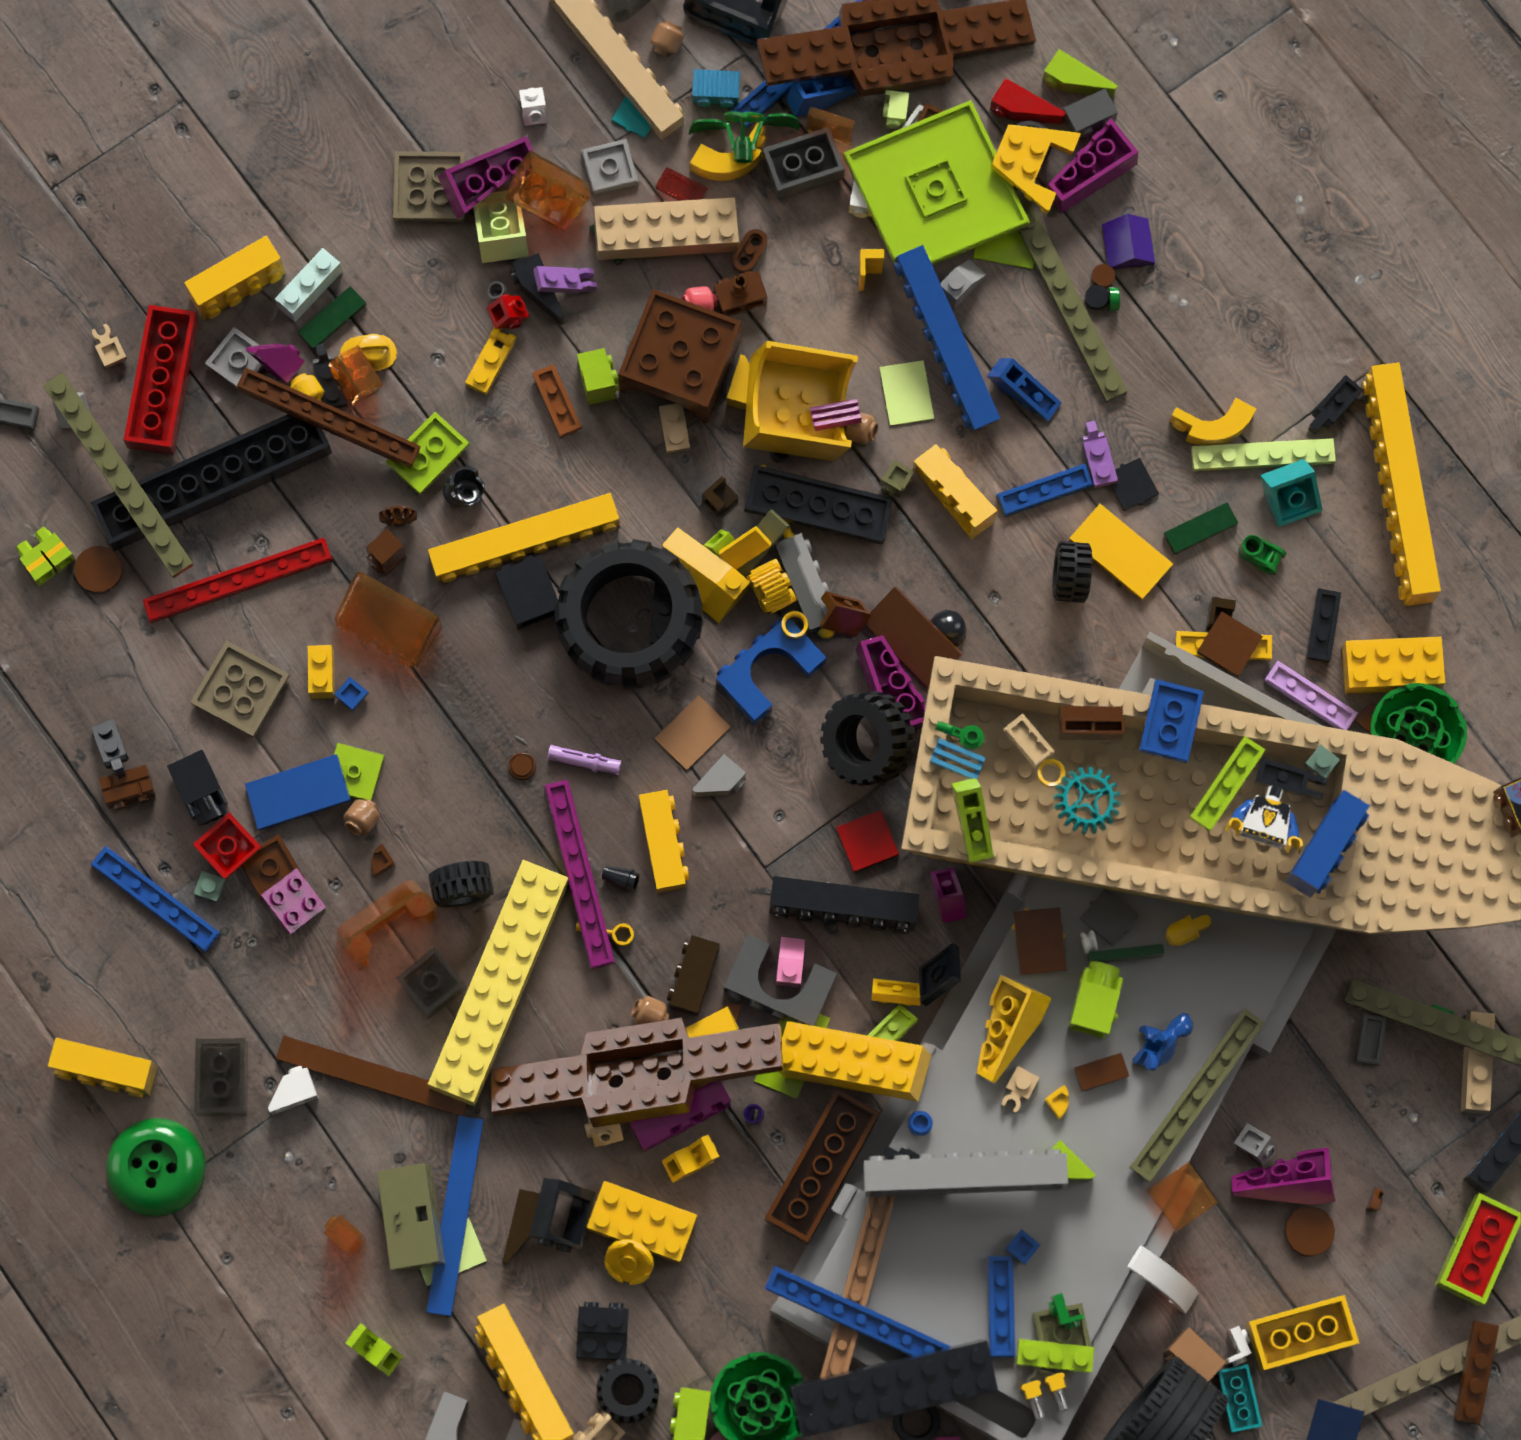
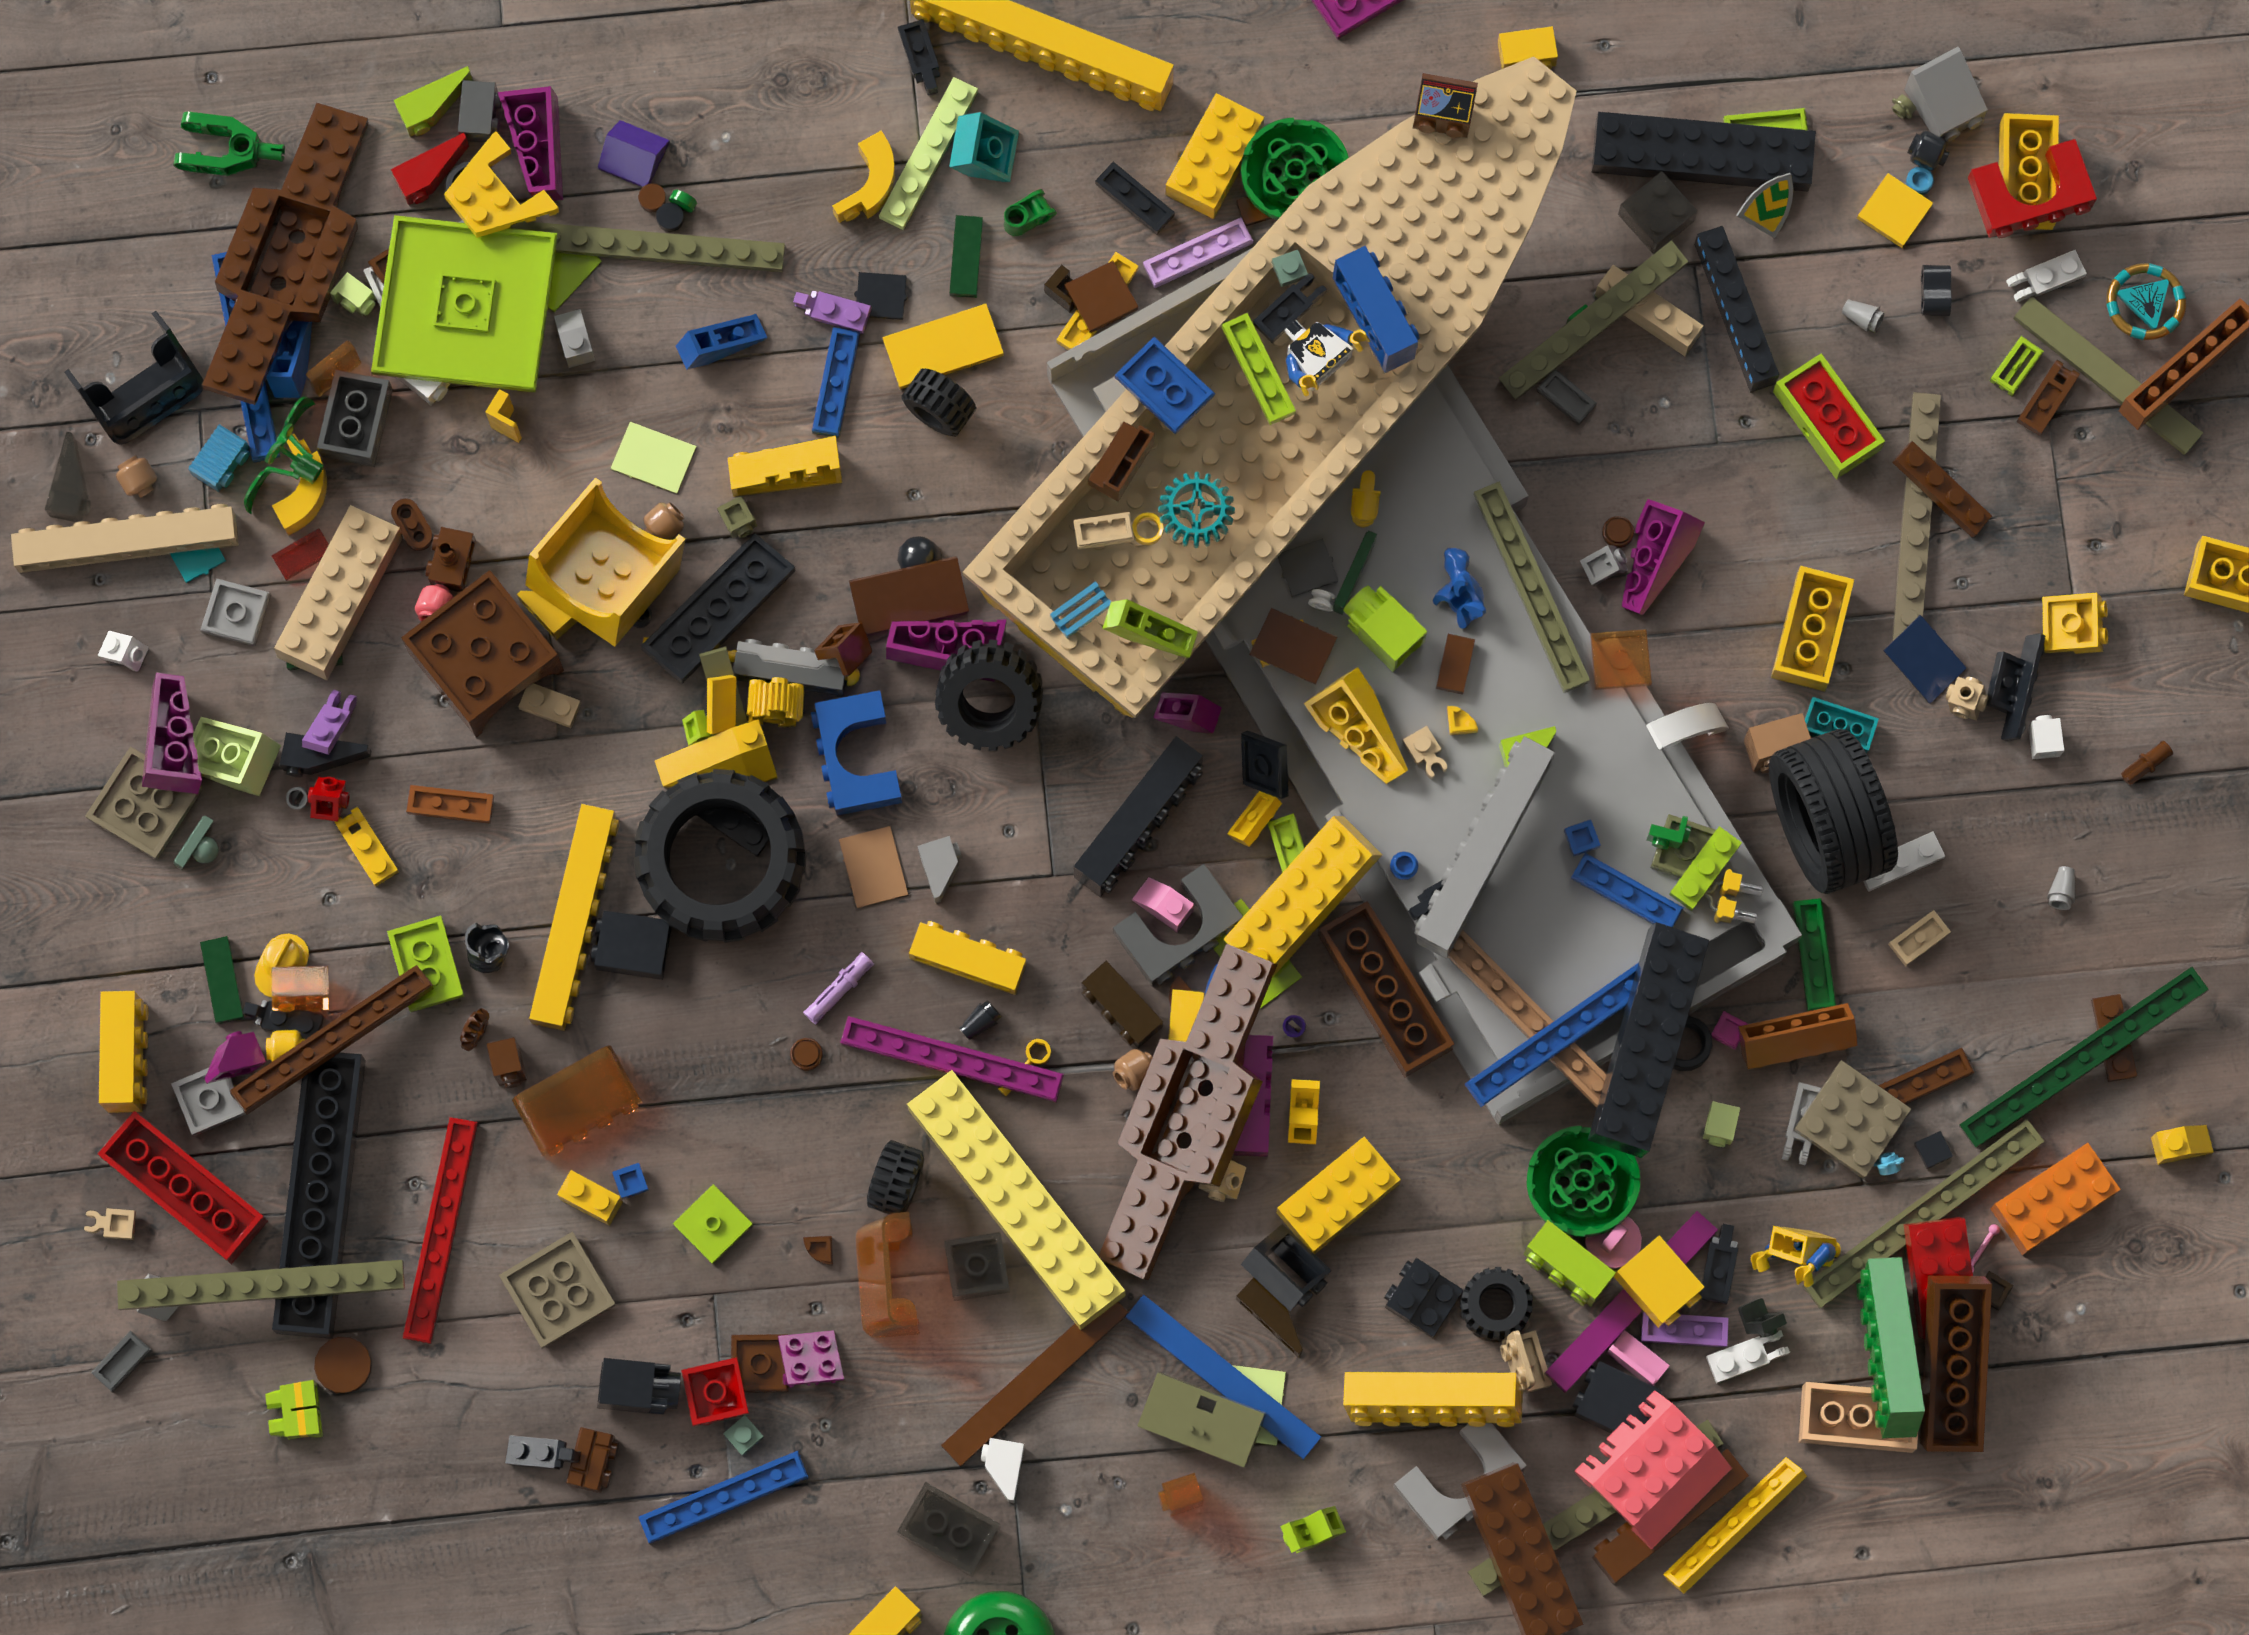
camera: 55 degrees left, 0 degrees up
(297, 792) = (700, 1291): blue tile -> none
(308, 285) = (173, 982): light aqua brick -> none
(361, 817) = (764, 1241): medium nougat head -> none
(420, 242) = (201, 847): none -> sand green tile
(548, 191) = (227, 685): clear orange slope -> none
(597, 376) = (450, 748): lime brick -> none
(629, 1261) = (1370, 1230): yellow tile -> none
(719, 496) = (649, 701): dark brown panel -> none
(794, 614) = (829, 688): yellow piece -> none
(835, 411) = (634, 535): magenta tile -> none
(867, 841) = (1086, 760): red tile -> none
(946, 338) = (626, 384): blue brick -> none
(970, 737) = (1066, 584): green plate -> none
(1240, 1342) = (1786, 692): white bracket -> none
(1289, 1140) = (1618, 531): none -> reddish brown piece
(1309, 1231) = (1717, 564): reddish brown tile -> none
(1375, 1200) = (1725, 487): reddish brown tile -> none

